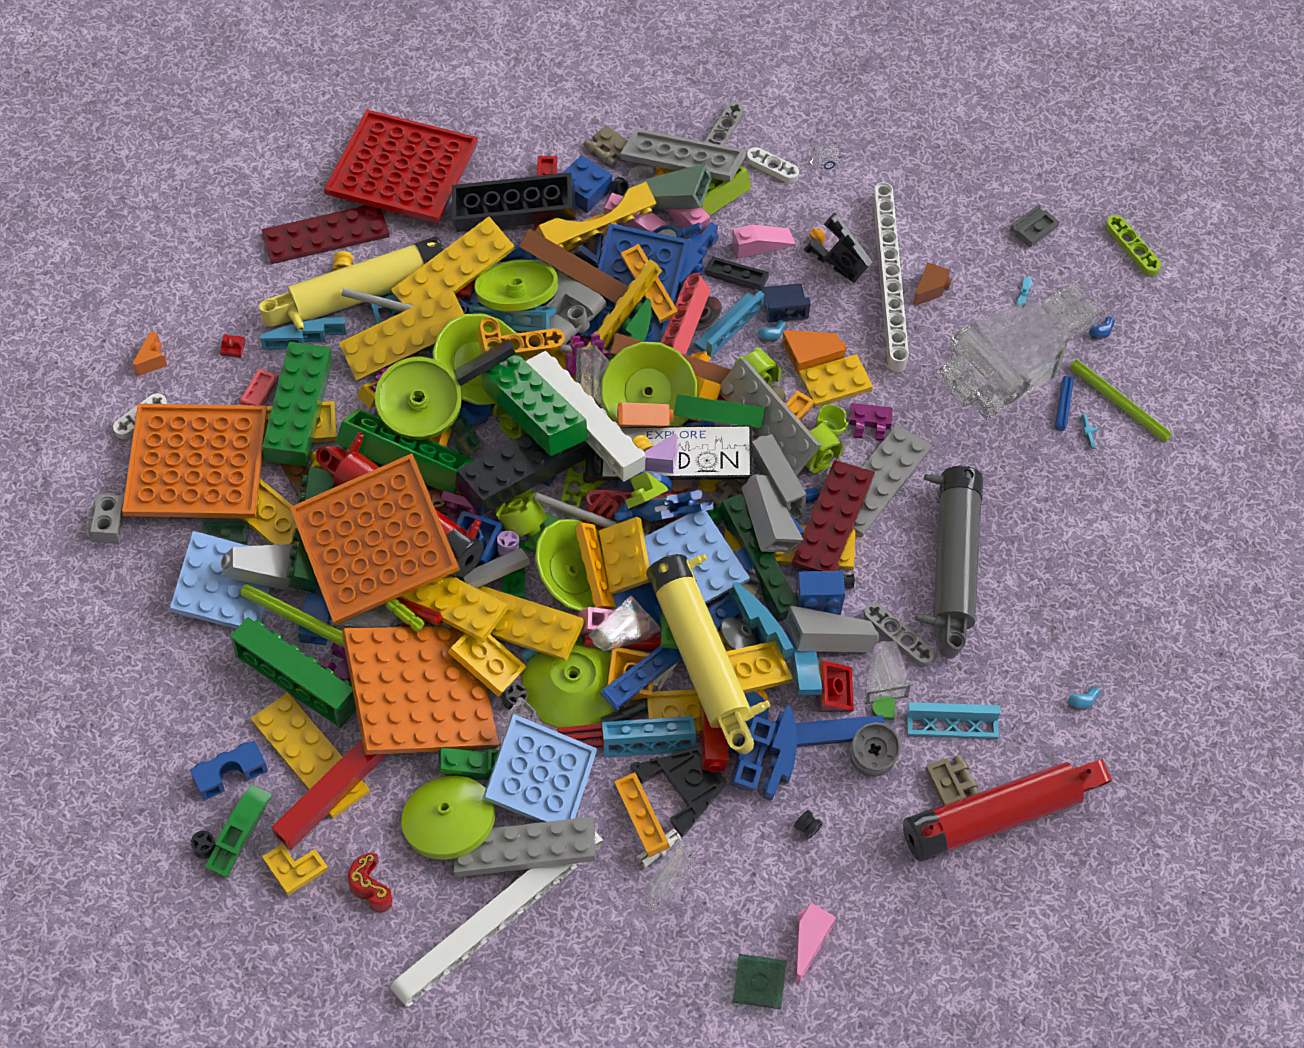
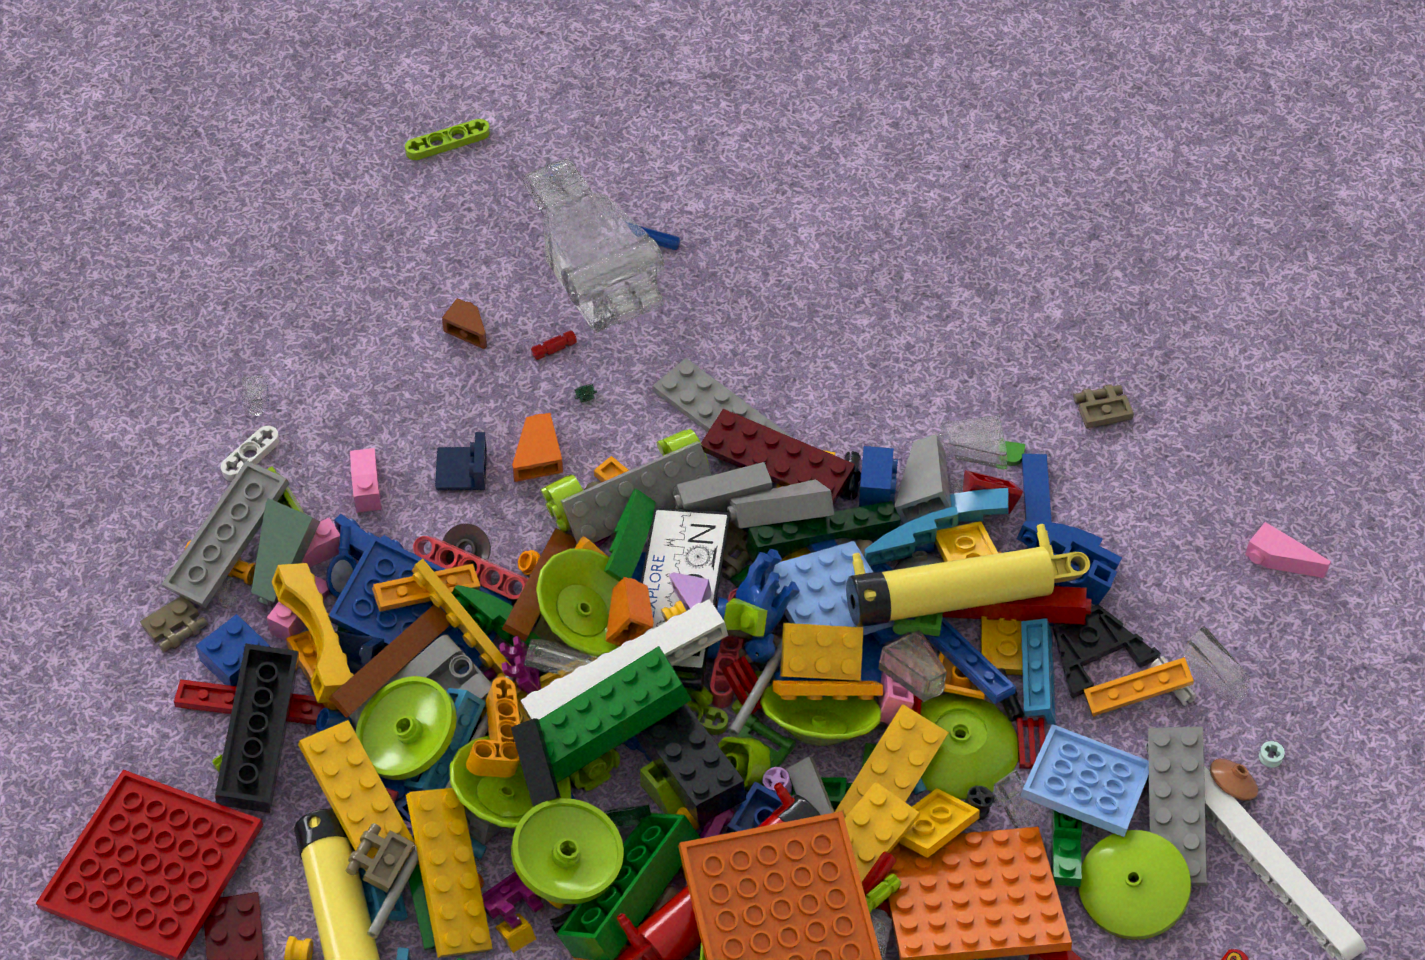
camera: 80 degrees left, 5 degrees down
(402, 290) = (386, 863): none -> dark tan plate
(550, 893) = (1234, 779): none -> nougat dish
(590, 925) = (1277, 759): none -> light aqua bush
(619, 186) = (247, 615): black plate -> none
(725, 133) = (180, 501): light grey beam -> none
(730, 323) = (468, 508): dark azure fence -> none
(737, 273) = (410, 509): black tile -> none
(759, 981) = (1329, 605): clear green plate -> none
(772, 333) = (503, 485): dark azure arm -> none
(808, 824) = (1151, 537): black wheel -> none
(818, 234) = (372, 421): light orange plate -> none
(833, 417) = (641, 444): lime hair -> none
(836, 380) = (580, 435): yellow plate -> none
(846, 255) = (423, 391): black wing -> none
(870, 416) = (636, 407): magenta plate -> none
(878, 376) = (585, 392): none -> clear green plate
(878, 737) = (1073, 459): flat silver wheel -> none
(890, 277) = (446, 359): white beam -> none
(901, 632) = (921, 424): light grey beam -> none
(926, 350) = (554, 345): none -> red axle
(953, 712) = (1026, 391): medium azure fence -> none
(956, 556) = (842, 353): dark grey piece -> none
(1001, 808) = (1144, 365): red piece -> none
(1027, 282) = (491, 245): medium azure piece -> none
(1034, 225) = (402, 218): dark grey plate -> none
(1086, 700) = (1014, 279): dark azure arm -> none
(1088, 430) = (684, 221): medium azure piece -> none
(1121, 400) = (661, 181): lime axle -> none

